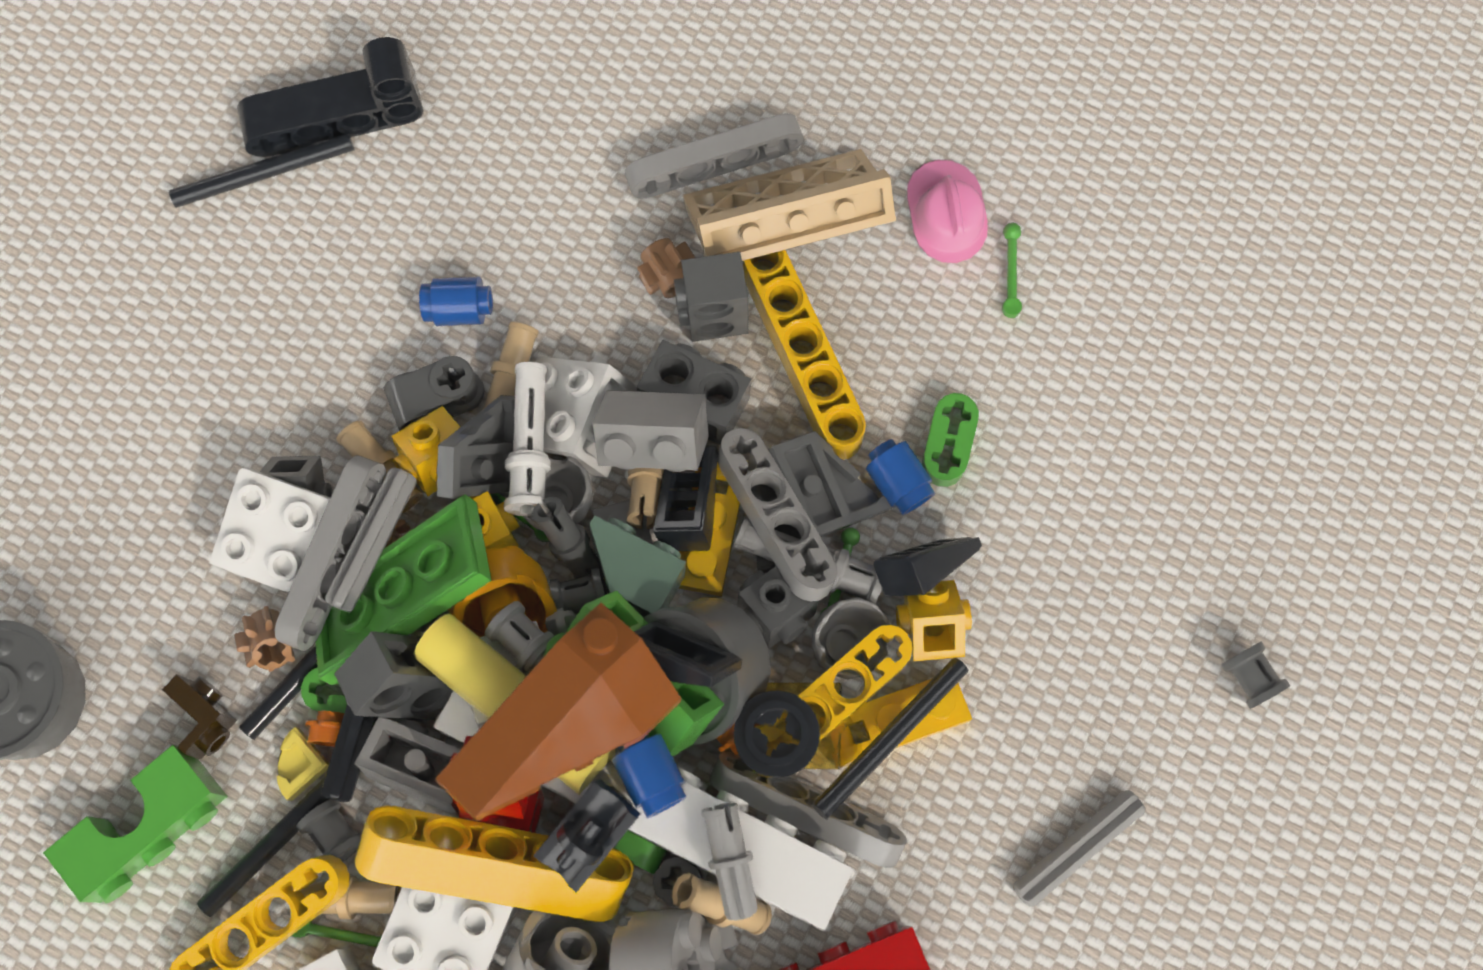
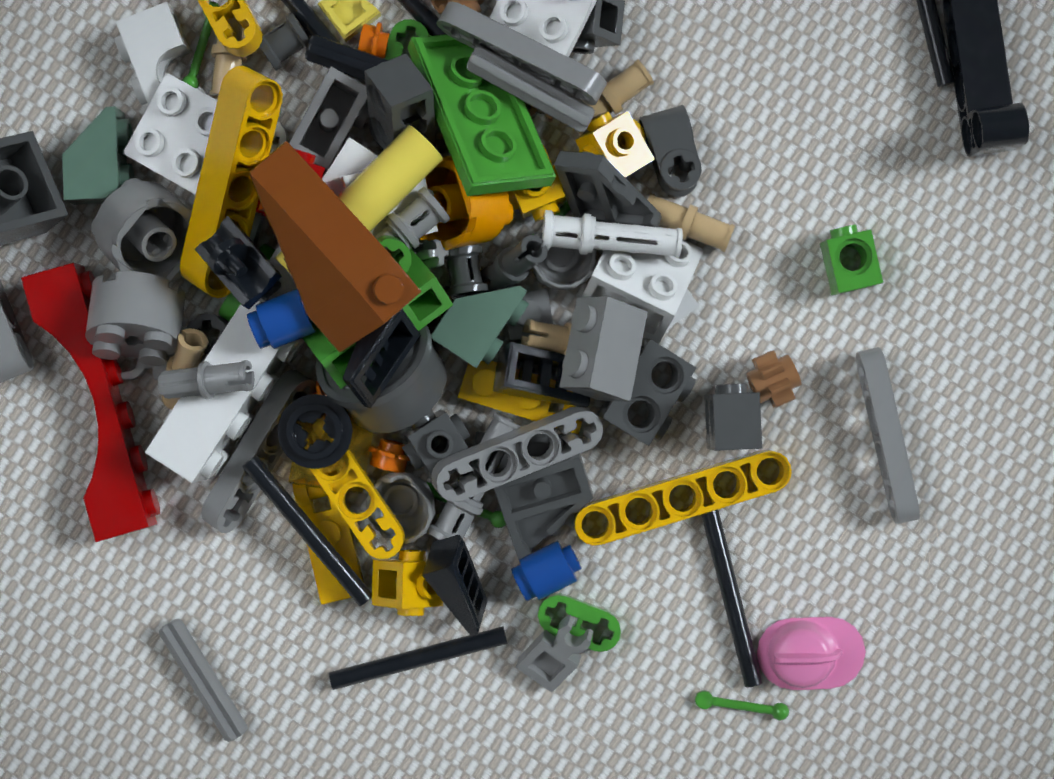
camera: 95 degrees right, 15 degrees up
(455, 301) = (763, 176): blue brick -> none
(541, 189) = (840, 278): none -> bright green brick
(795, 660) = (389, 456): none -> orange plate
(798, 217) = (800, 502): tan fence -> none
(904, 289) = (731, 599): none -> black bar
(993, 458) = (554, 658): none -> light grey plate
(1016, 609) = (417, 658): none -> black bar

